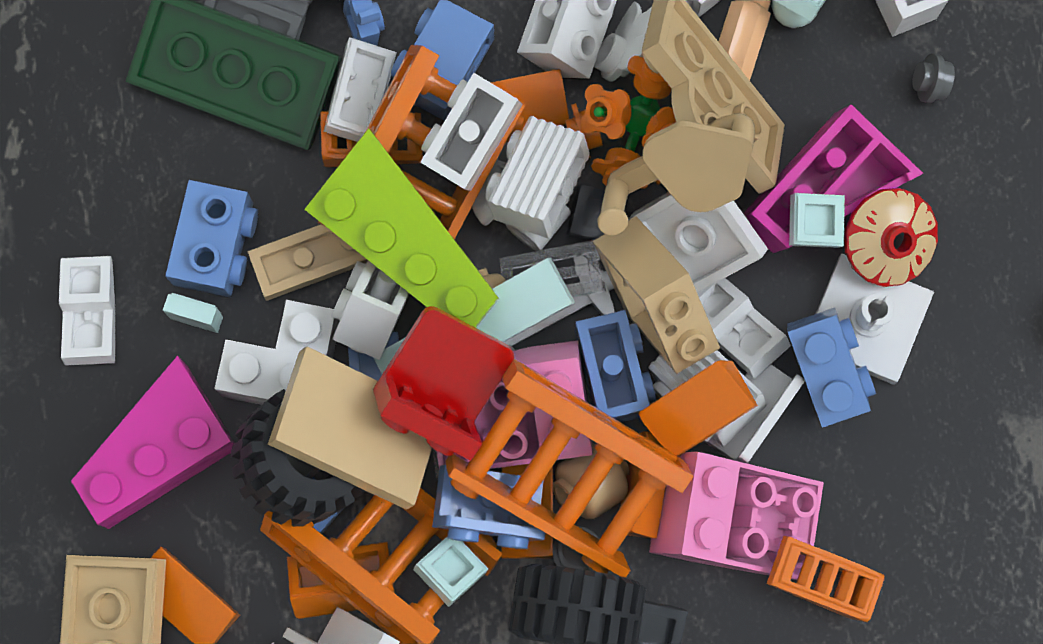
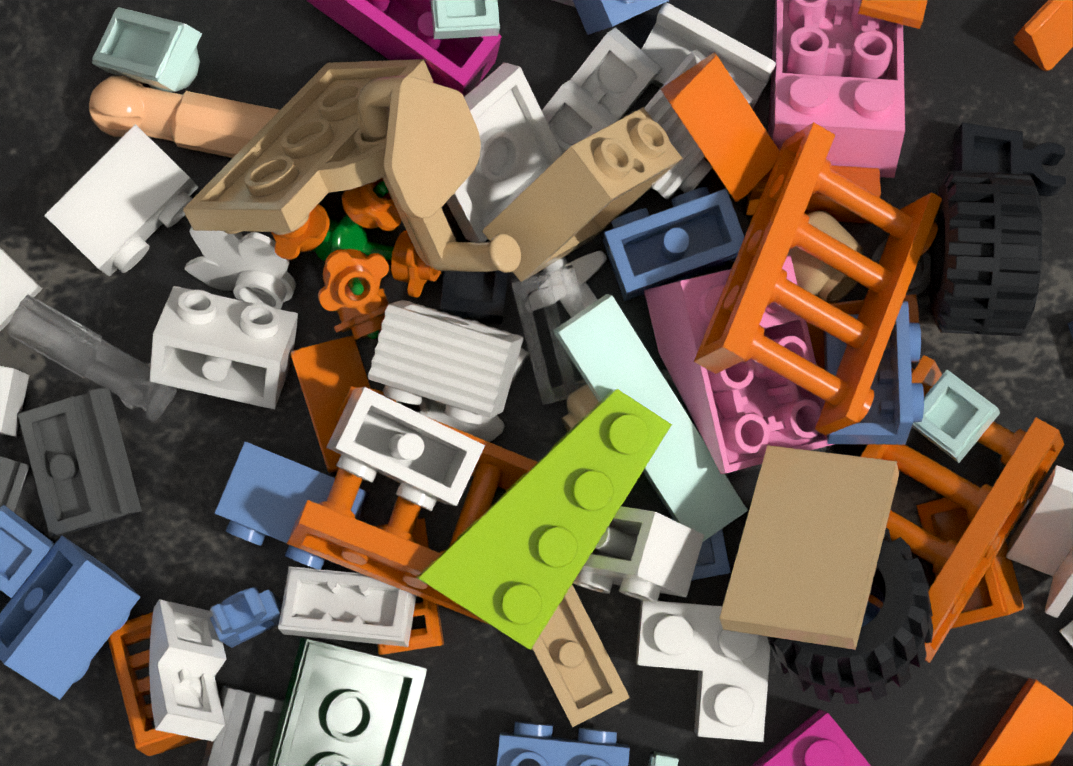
camera: 90 degrees left, 5 degrees up
(442, 382) = (742, 447): red bracket -> none

